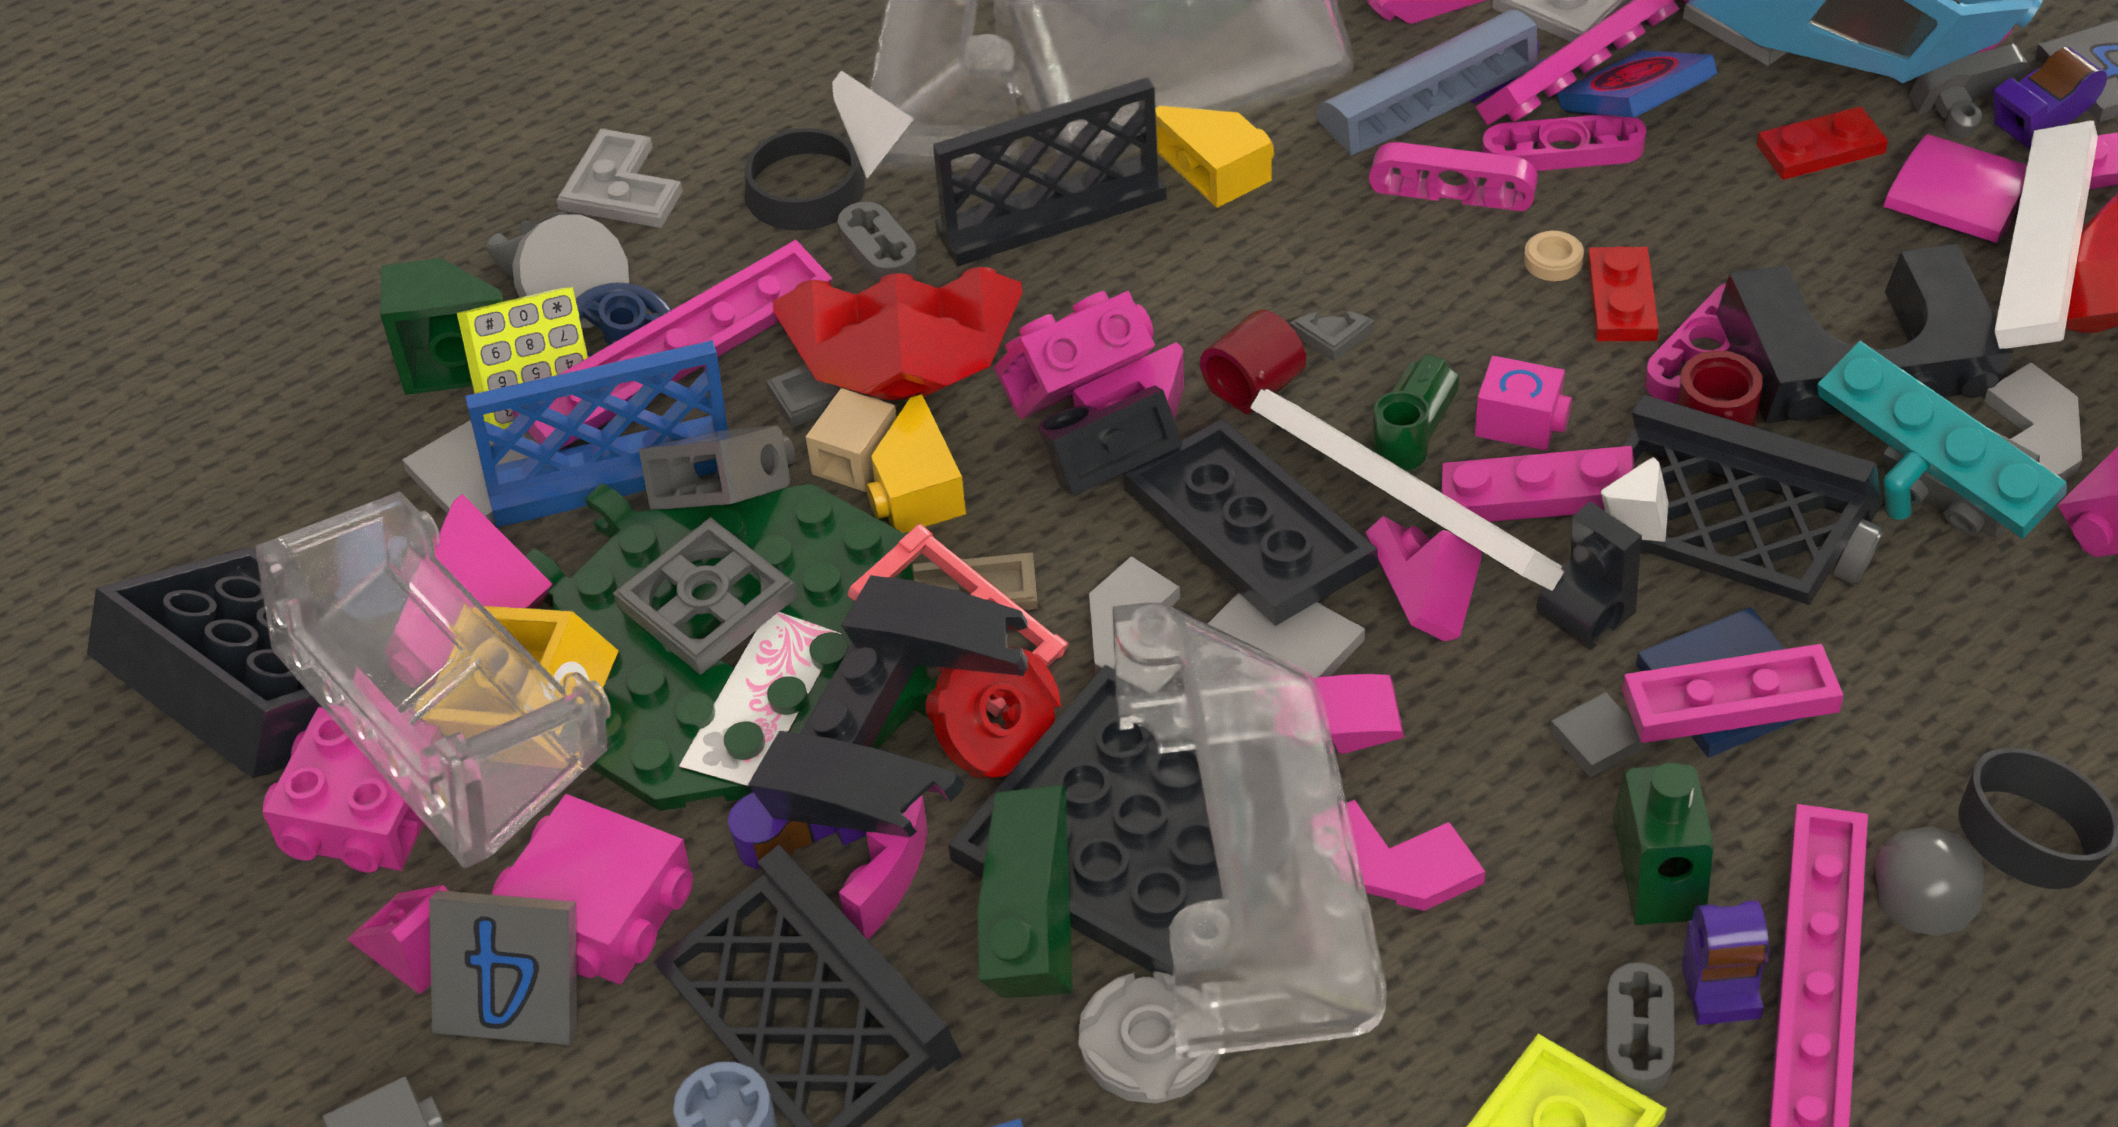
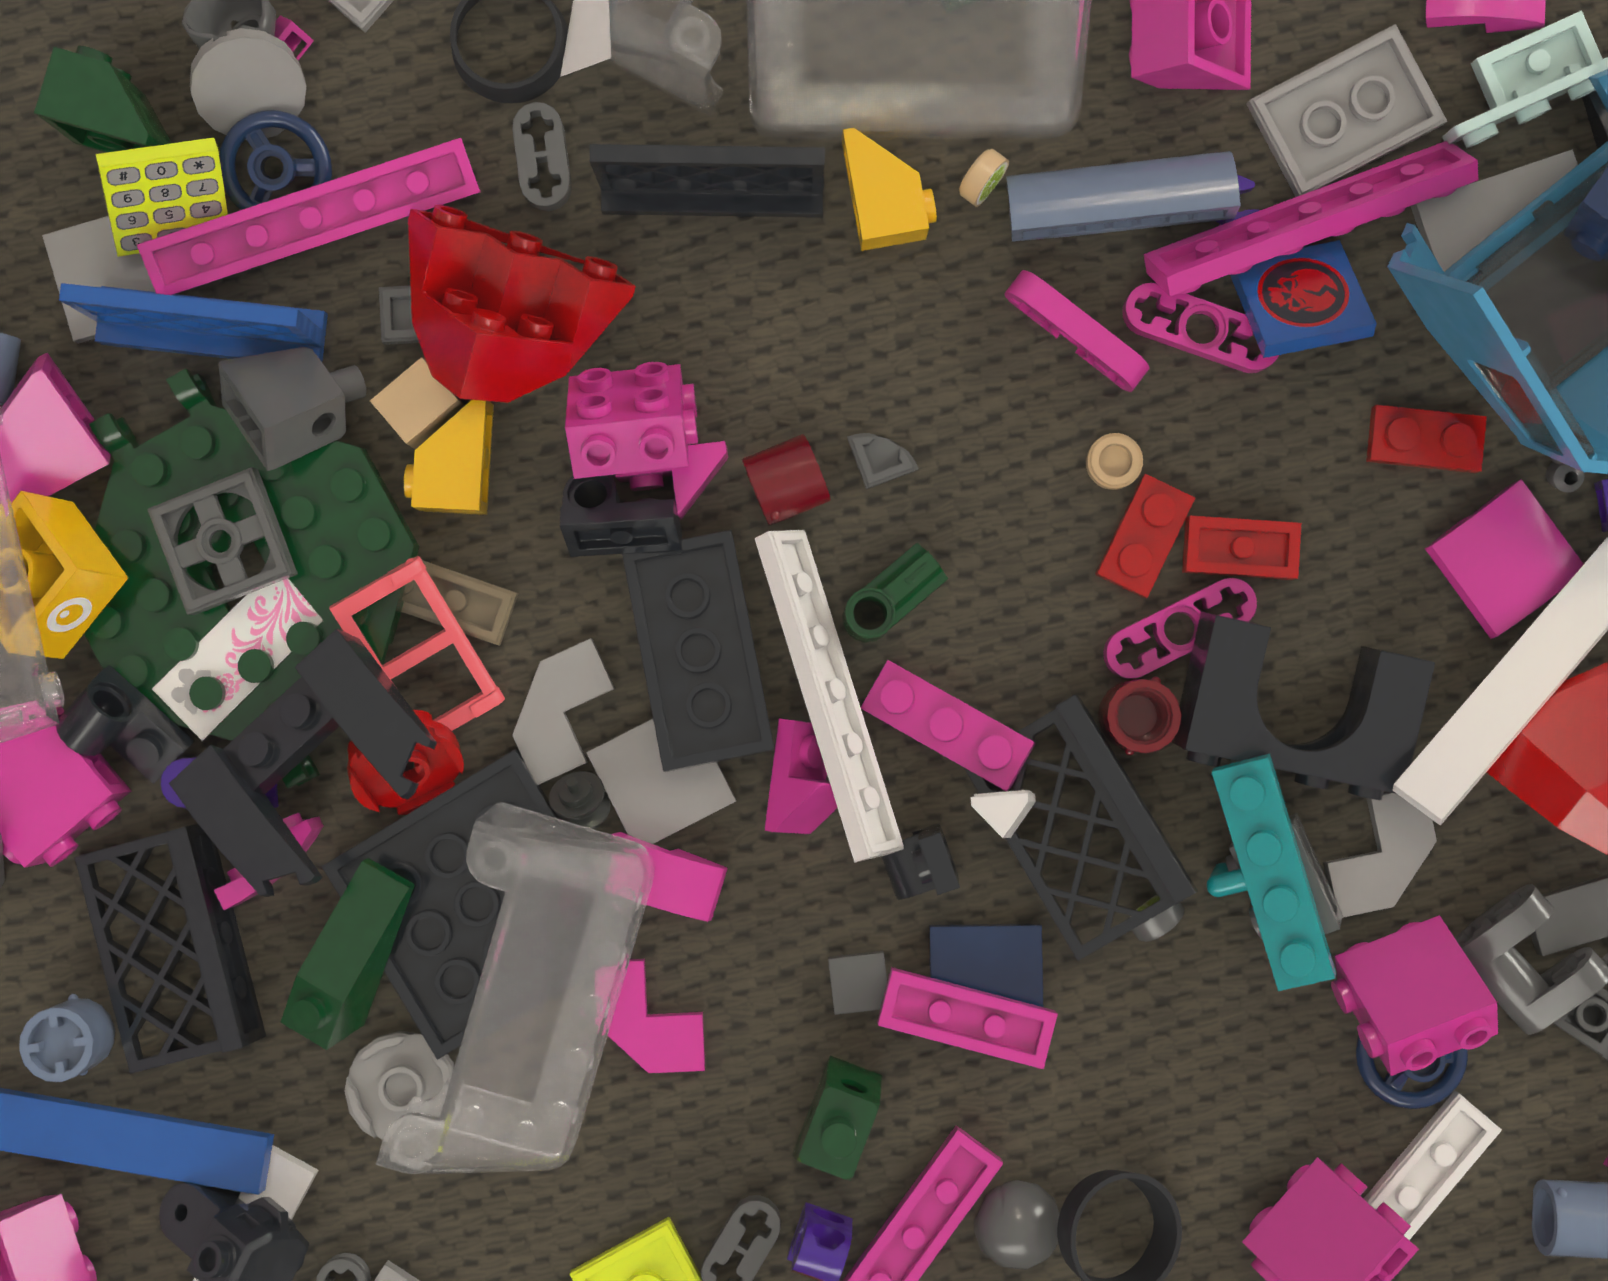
camera: 20 degrees right, 40 degrees up
(667, 798) = (121, 717): none -> black plate
(1296, 113) = (983, 176): none -> tan tile
(1522, 403) = (984, 634): dark pink brick -> none
(1702, 265) = (1241, 547): none -> red plate

